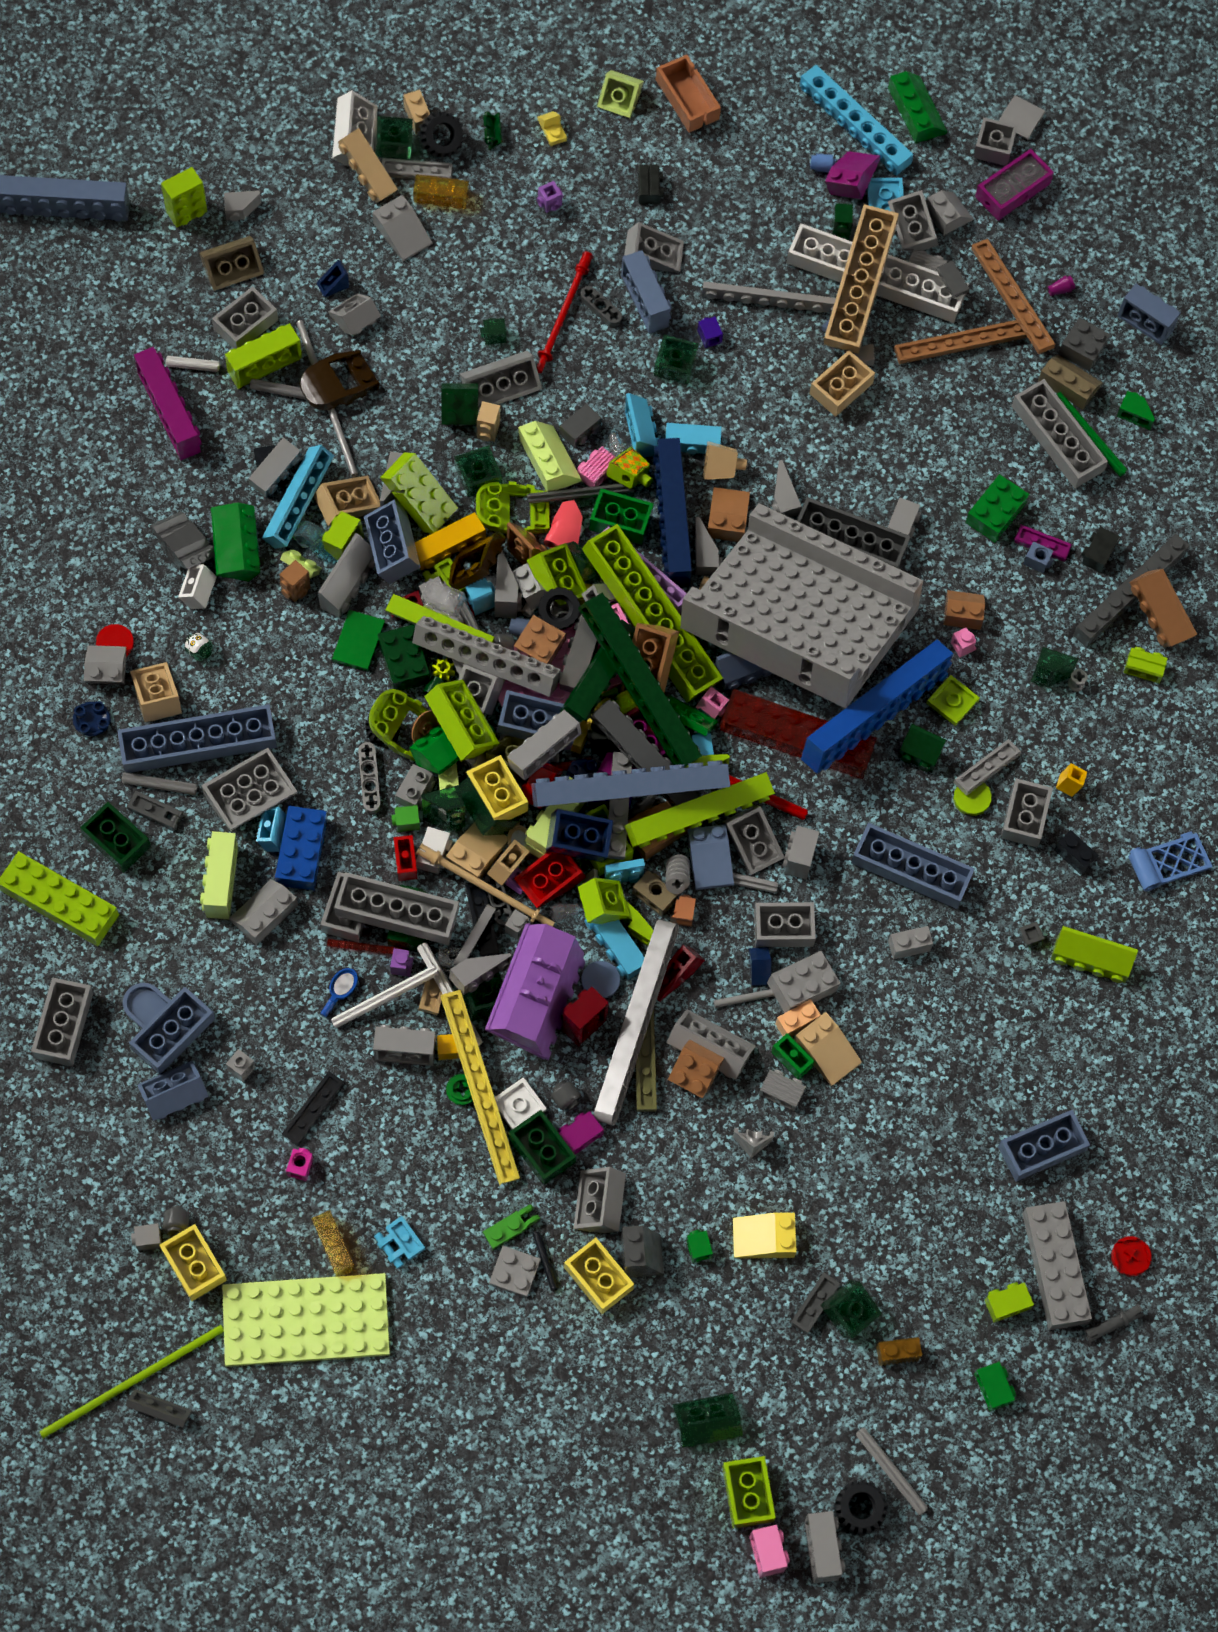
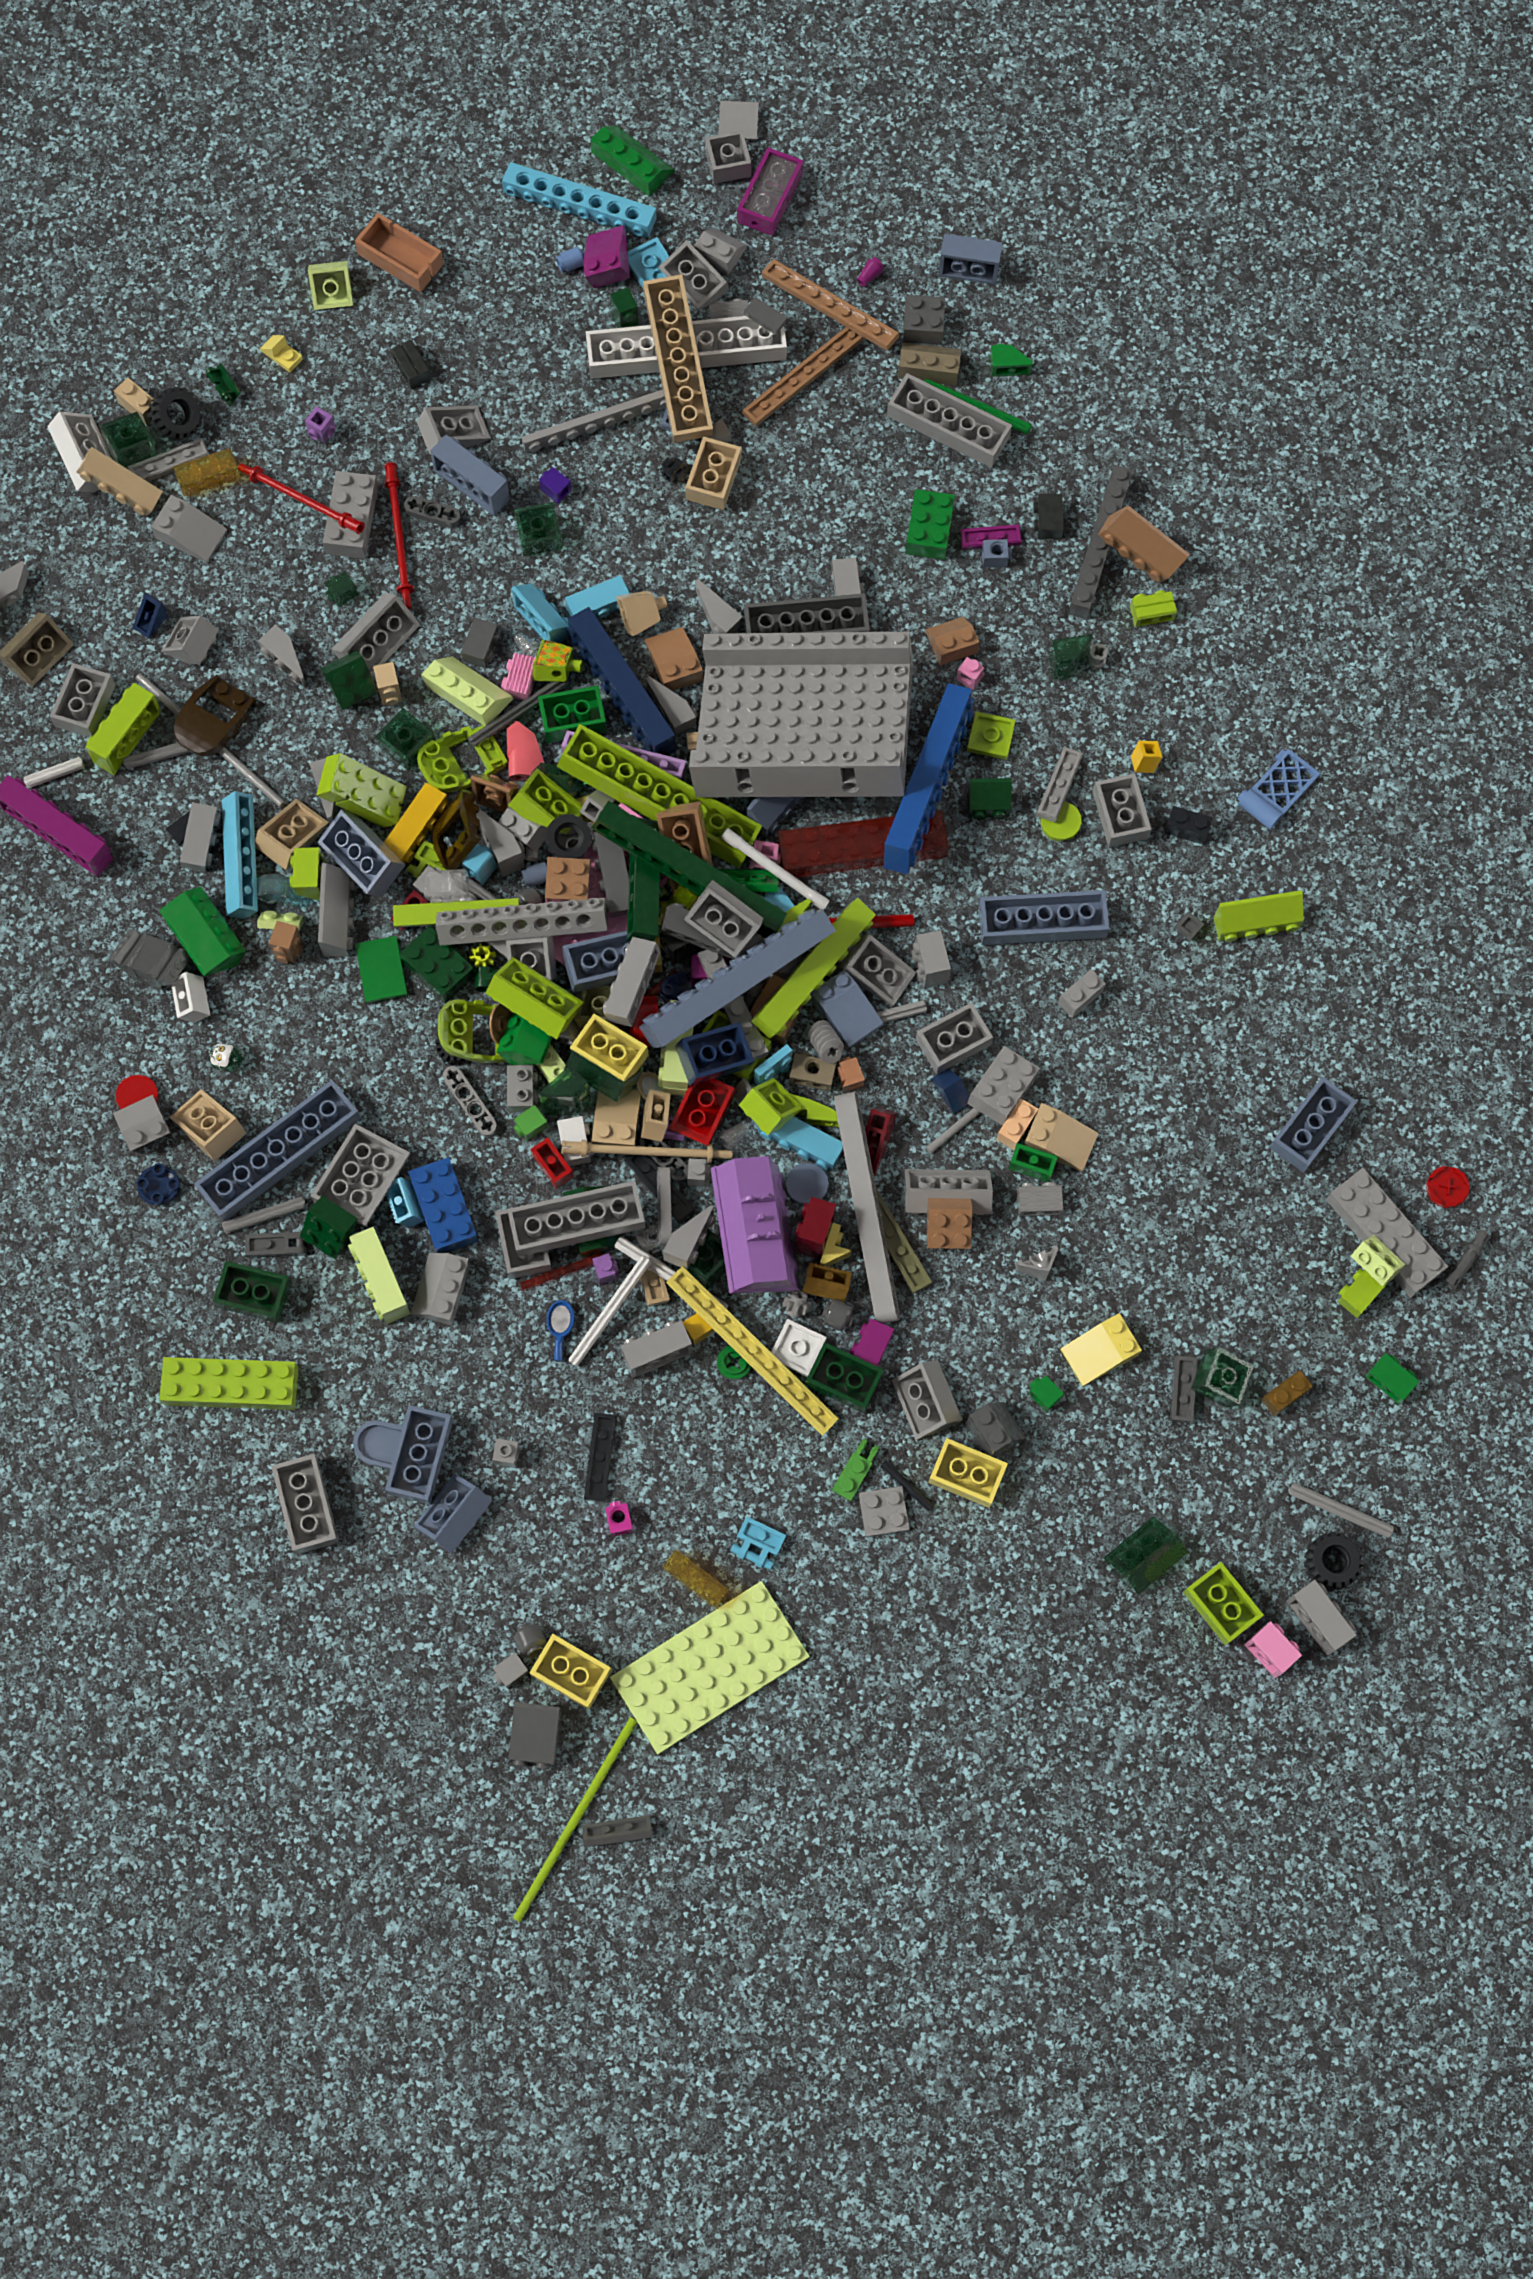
camera: 25 degrees left, 5 degrees up
(137, 1296) = (534, 1735): none -> dark grey slope
(201, 816) = (328, 1227): none -> dark green brick
(421, 356) = (279, 648): none -> light grey slope
(525, 278) = (344, 520): none -> red bar
(534, 277) = (357, 496): none -> light grey brick
(537, 1069) = (796, 1303): none -> light grey gear
(571, 1064) = (827, 1282): none -> pearl gold brick
(588, 1044) = (833, 1253): none -> light yellow slope
(645, 732) = (724, 918): none -> light grey slope
(694, 681) = (738, 843): none -> white piece
(811, 365) = (673, 469): none -> black gear
(1033, 1282) = (1377, 1260): none -> yellowish green brick

